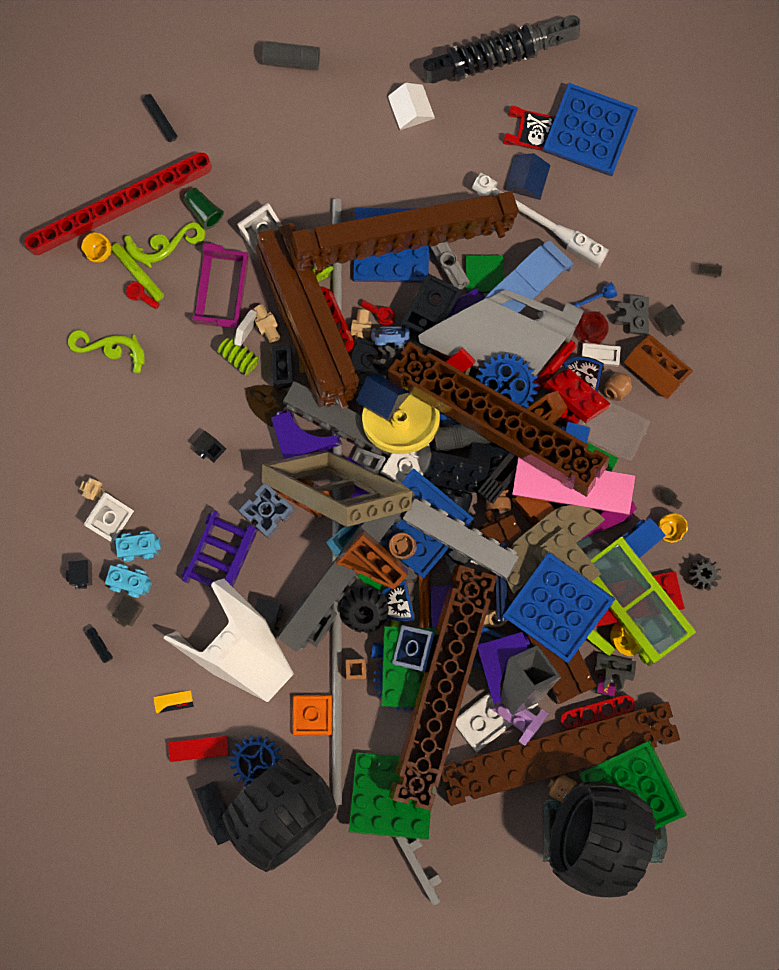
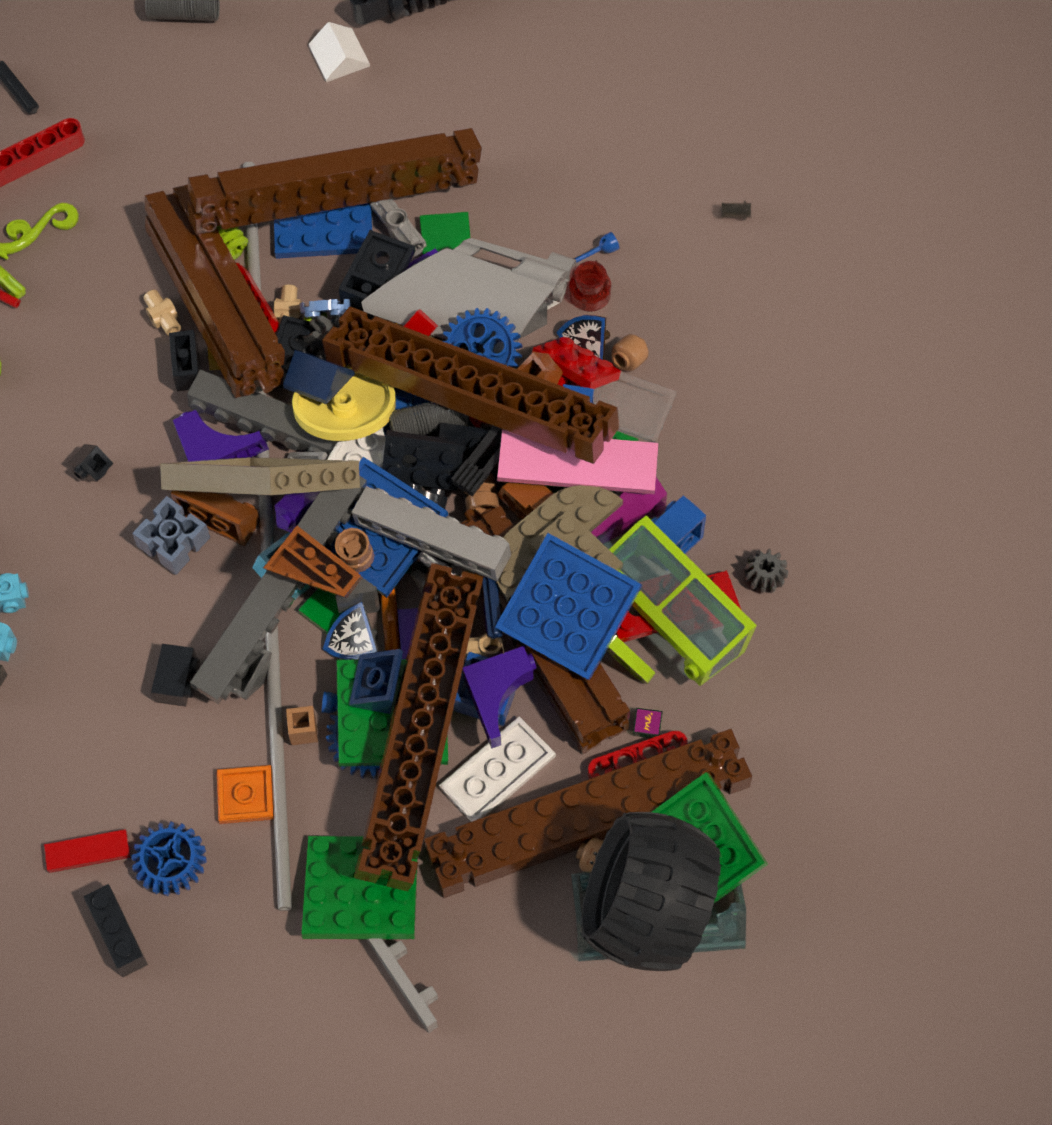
camera: 10 degrees left, 15 degrees down
(173, 701) = (50, 793): yellow sticker -> none
(203, 208) = (75, 185): dark green plant -> none
(217, 251) = (94, 233): magenta piece -> none
(238, 356) = (126, 351): lime piece -> none
(240, 553) = (127, 615): dark purple fence -> none
(245, 327) = (133, 315): white tile -> none
(245, 649) = (142, 712): white windscreen -> none
(257, 222) = (134, 196): white slope -> none
(265, 401) = (162, 407): dark brown shield -> none
(279, 813) = (200, 905): black tyre -> none
(361, 619) = (300, 663): black wheel -> none
(385, 316) = (315, 290): red plate -> none
(522, 720) = (531, 767): lavender bracket -> none
(527, 680) = (535, 708): dark grey slope -> none
(528, 175) = (495, 119): dark blue slope -> none
(532, 130) = (497, 69): flag -> none
(534, 274) = (509, 221): medium blue windscreen -> none
(554, 365) = (547, 331): red axle -> none
(576, 242) = (563, 189): white bar -> none
(590, 129) = (568, 62): blue plate -> none
(606, 354) = (617, 317): white tile -> none
(615, 670) = (656, 699): dark grey plate -> none
(622, 640) = (663, 657): yellow helmet -> none
(634, 314) = (642, 267): dark grey plate -> none
(658, 366) = (679, 326): dark orange slope -> none
(669, 321) = (689, 271): clear smoke brick -> none
(669, 497) = (709, 482): clear smoke cylinder -> none
(673, 526) = (719, 514): yellow hair -> none

